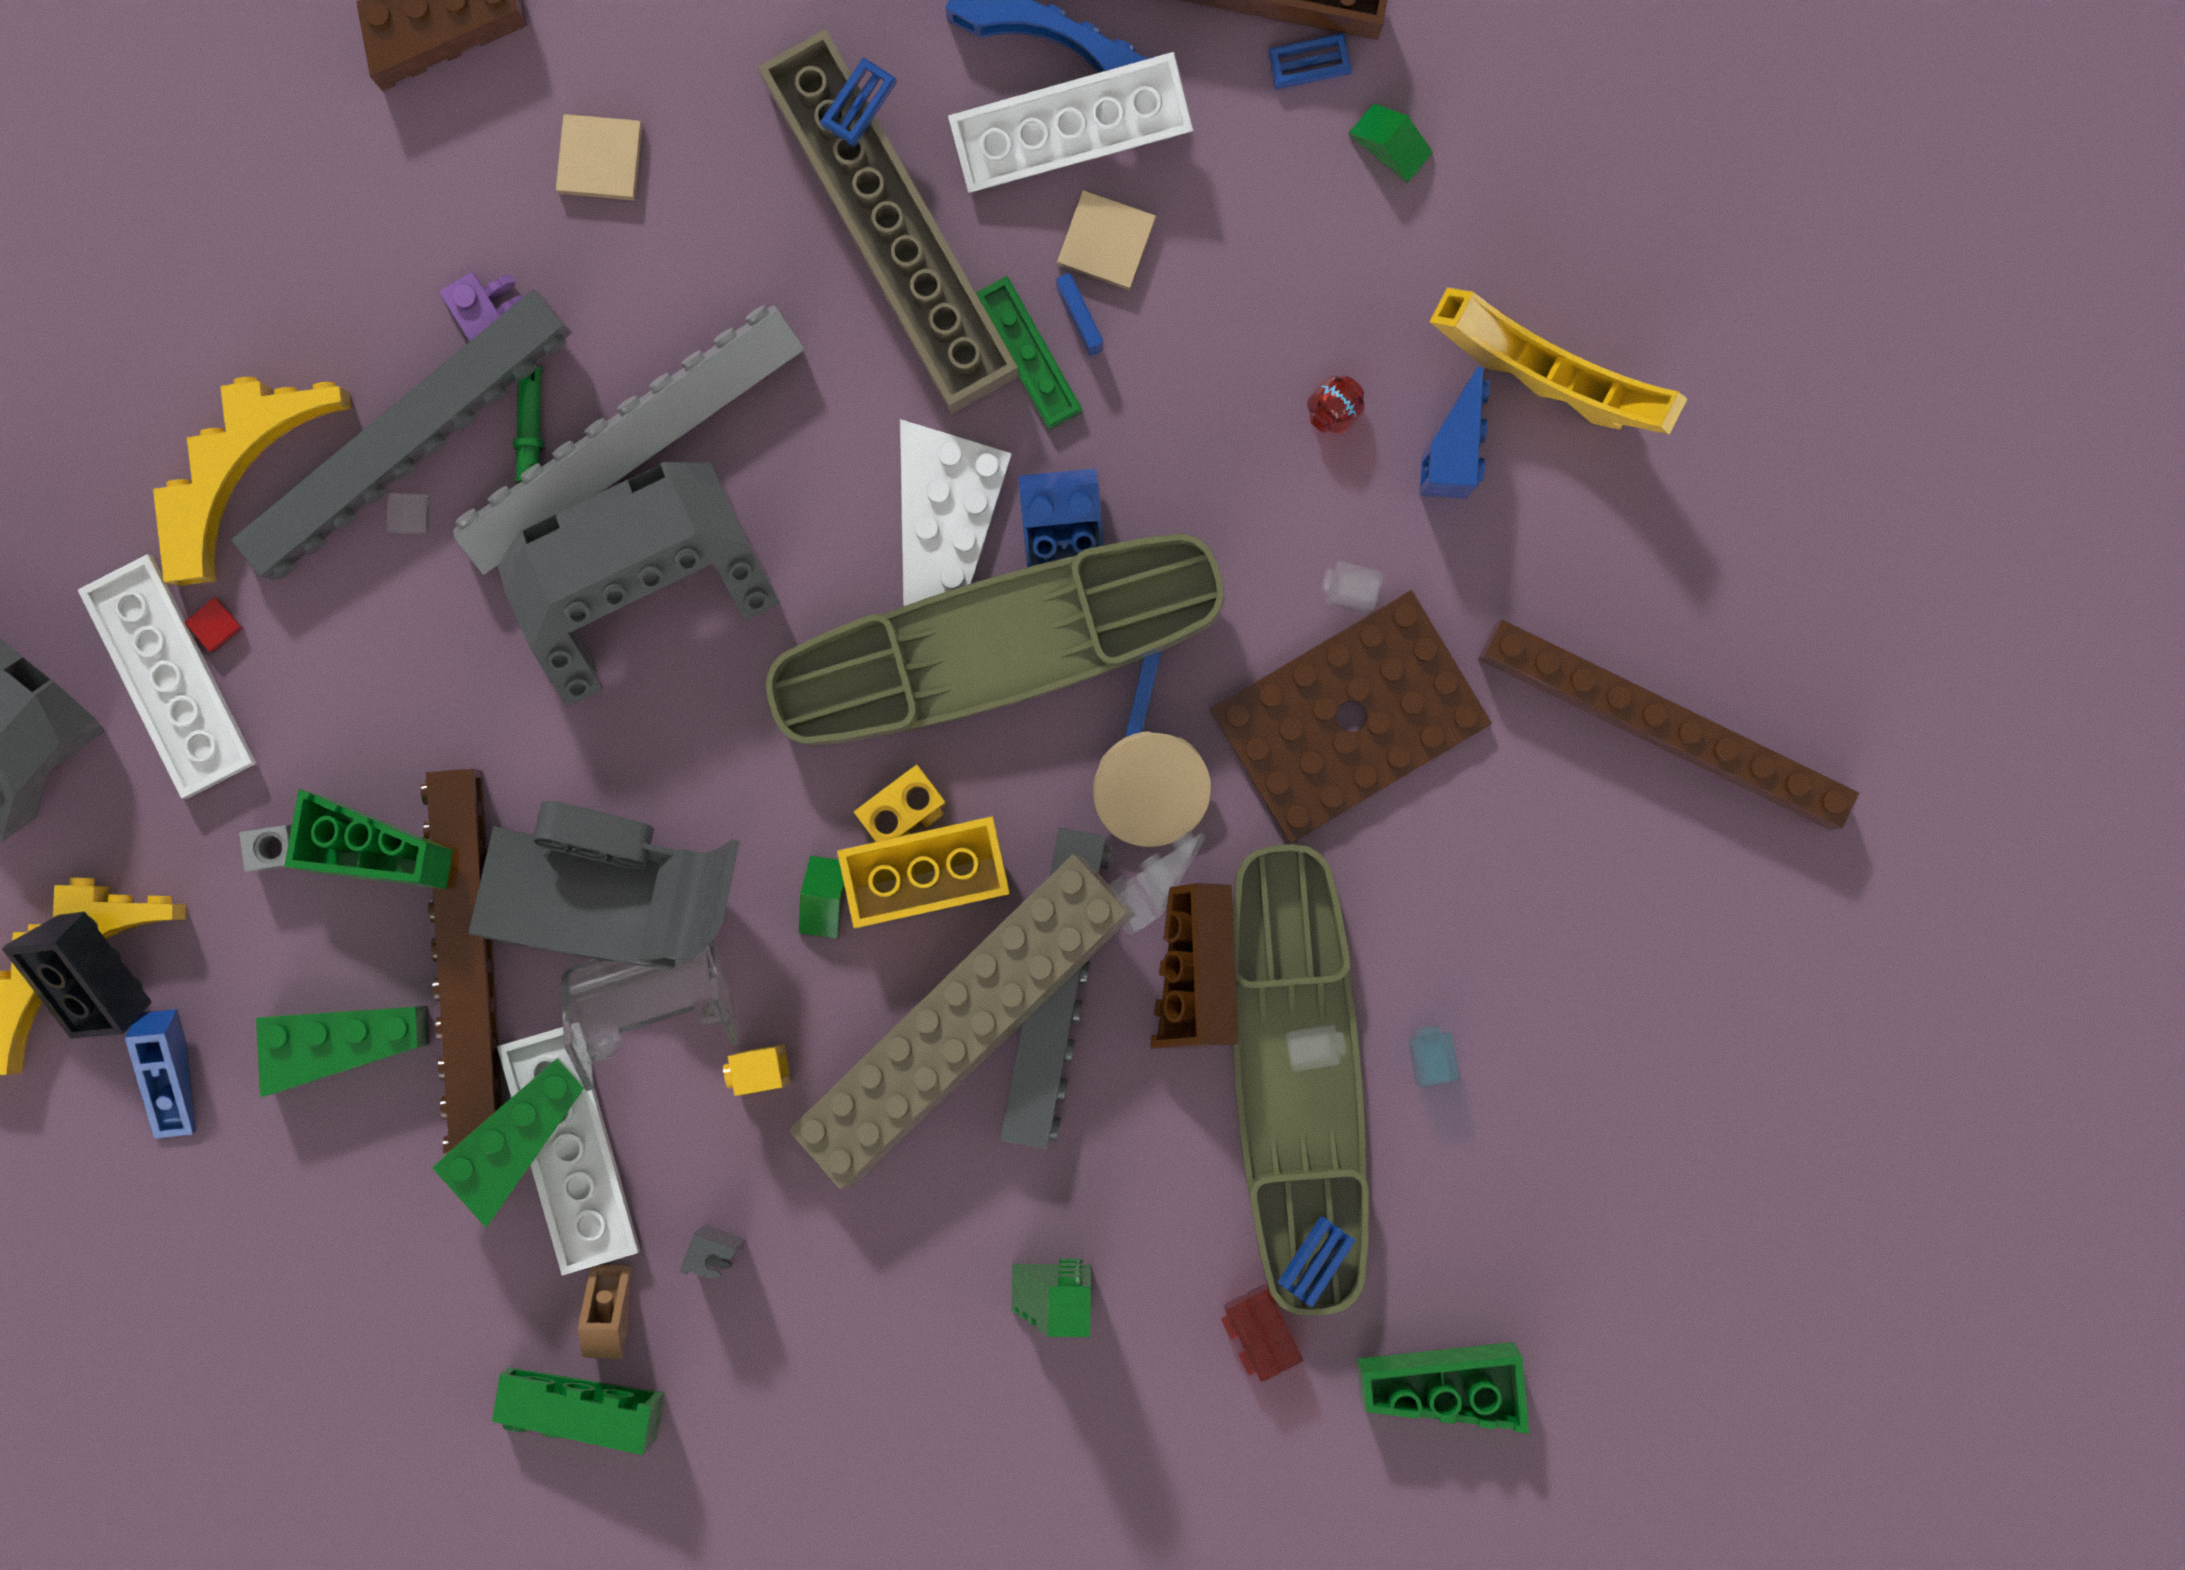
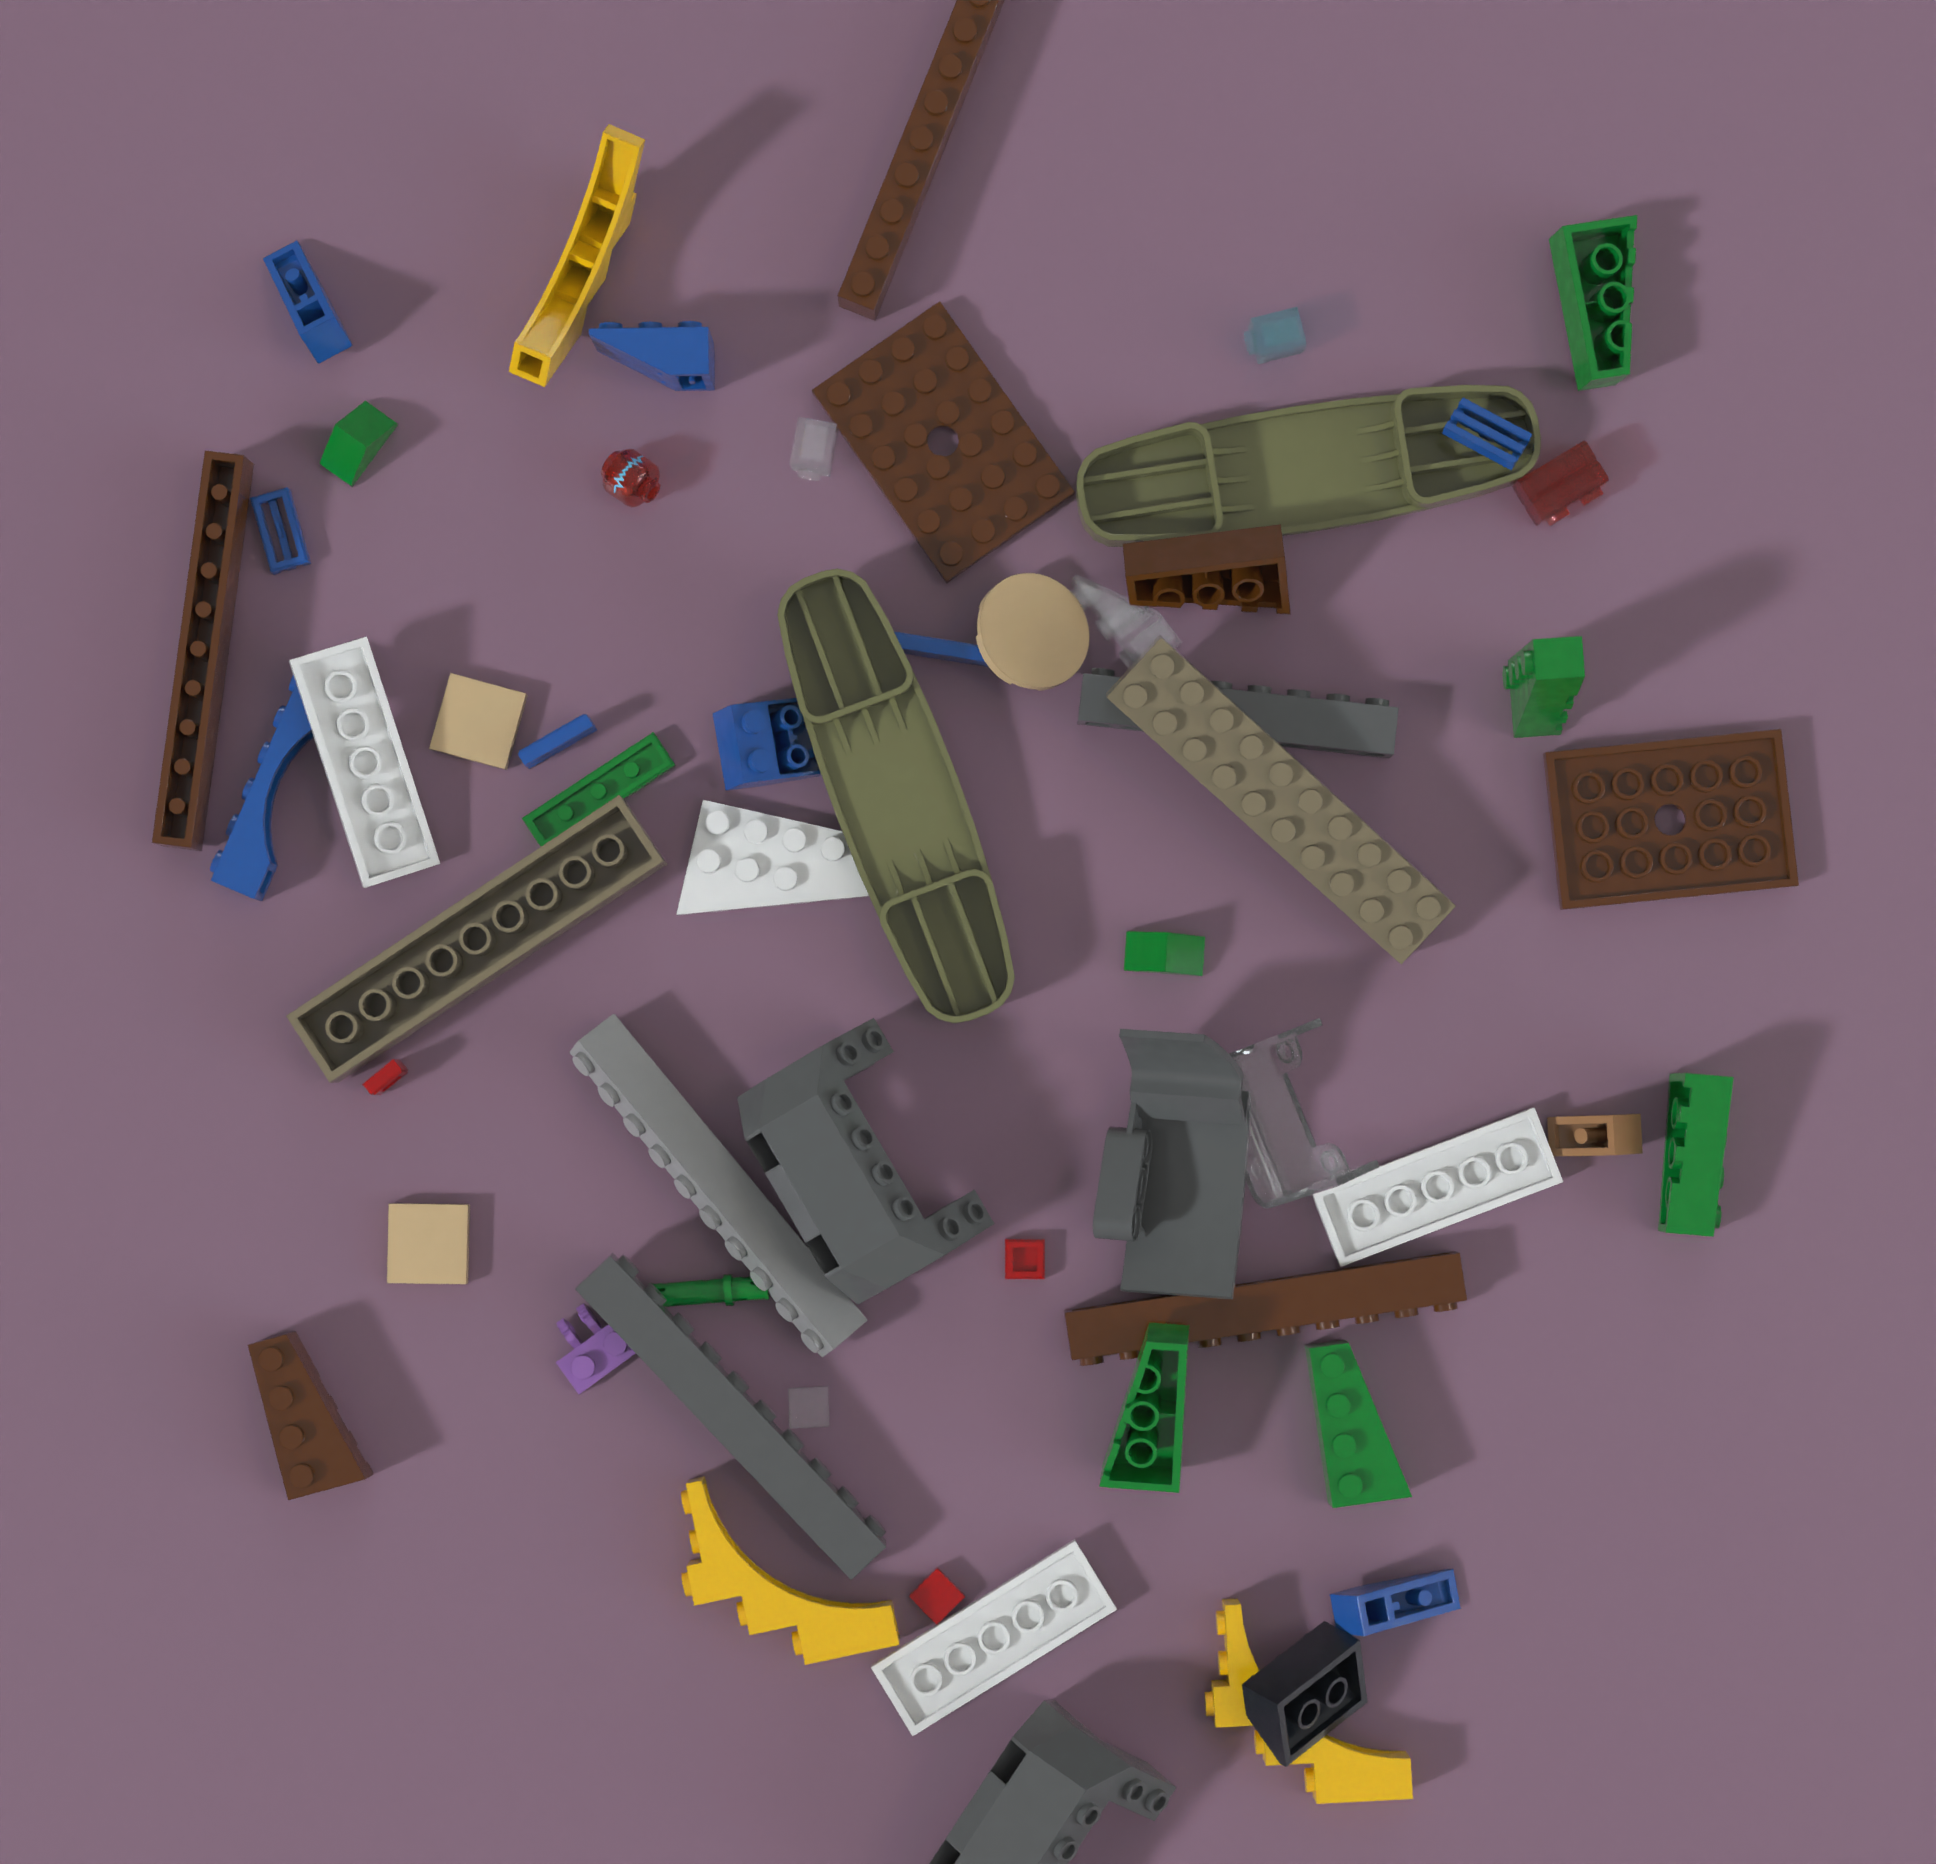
camera: 90 degrees left, 0 degrees up
(255, 848) = (1163, 1529): light grey brick -> none
(501, 1149) = (1434, 1239): green wedge -> none
(534, 735) = (1024, 1258): none -> red tile
(709, 1247) = (1527, 1034): dark grey hinge -> none
(757, 1070) = (1344, 1000): yellow brick -> none
(762, 125) = (385, 1077): none -> red tile
(840, 130) = (390, 991): blue tile -> none
(895, 799) = (1062, 887): yellow brick -> none
(901, 1477) = (1732, 806): none -> reddish brown plate
(923, 872) = (1134, 850): yellow slope -> none
(1315, 1048) = (1276, 452): clear brick -> none
(1532, 100) = (307, 302): none -> blue slope

